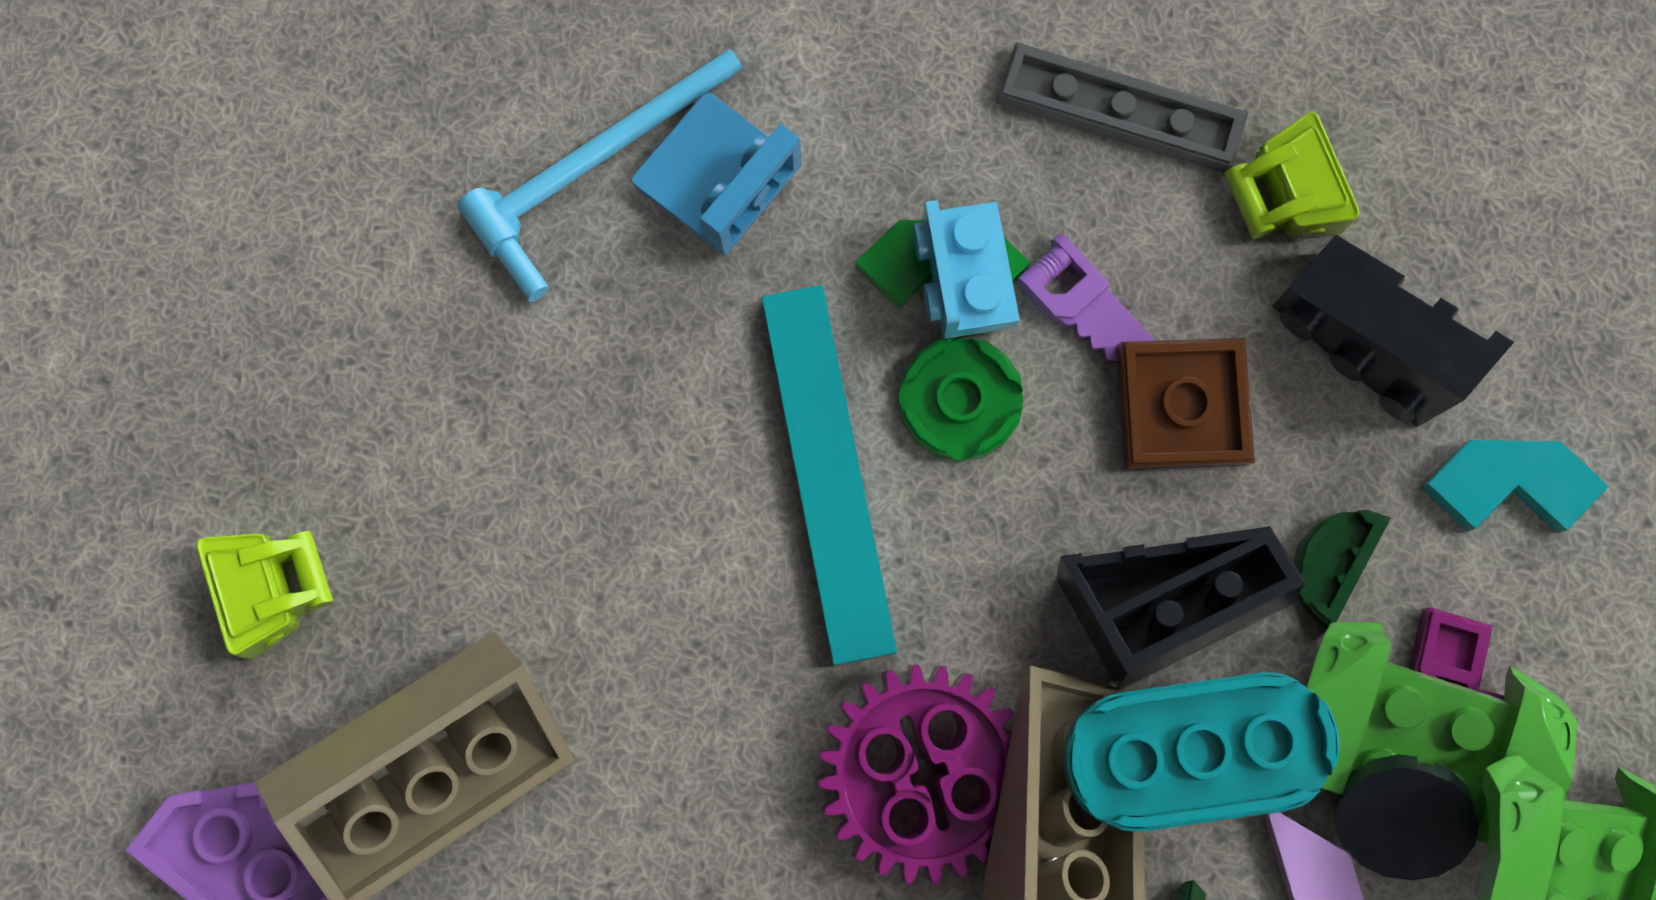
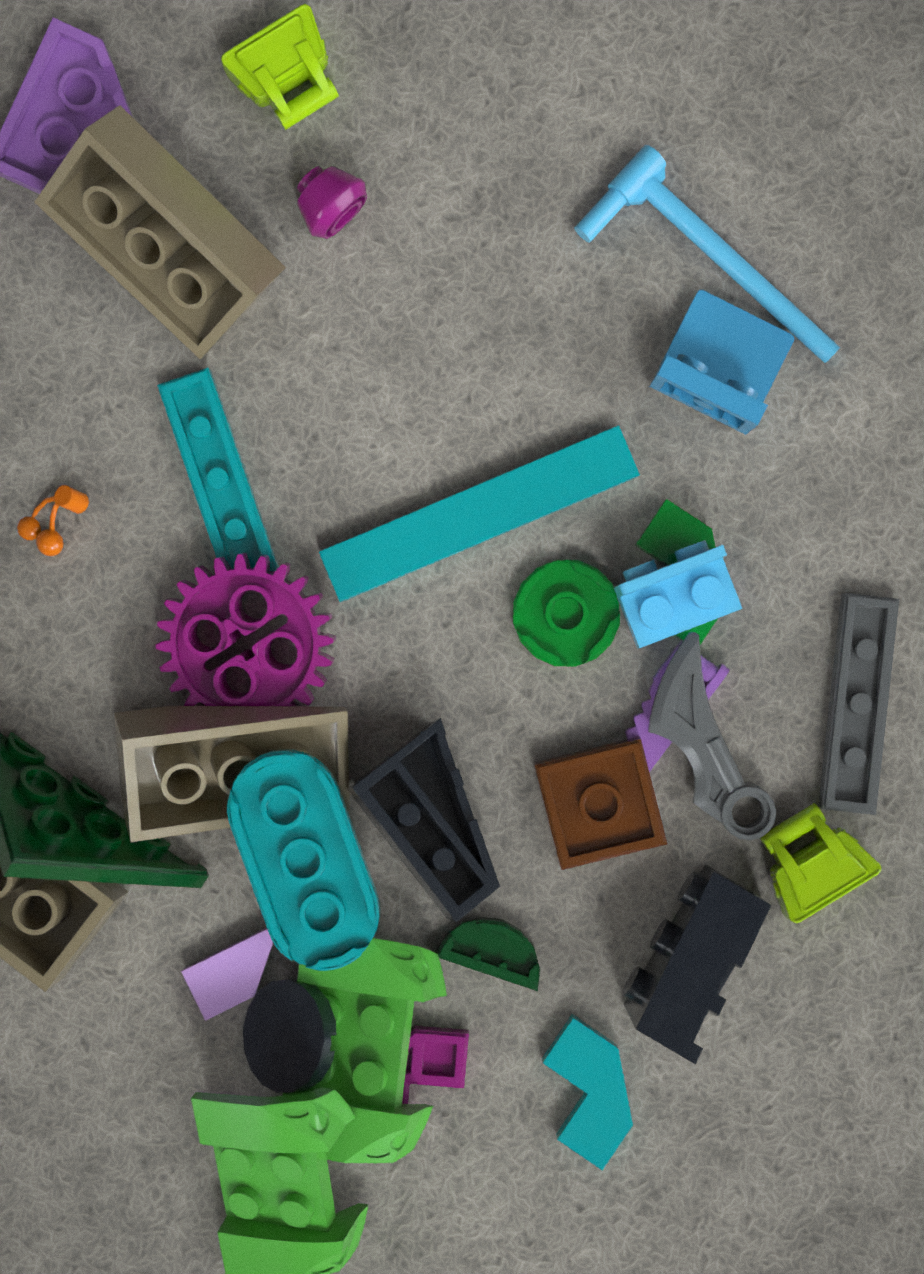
camera: 75 degrees right, 10 degrees up
(428, 565) = (329, 200): none -> magenta cone
(709, 768) = (215, 468): none -> teal tile
(1108, 288) = (685, 718): none -> dark grey piece

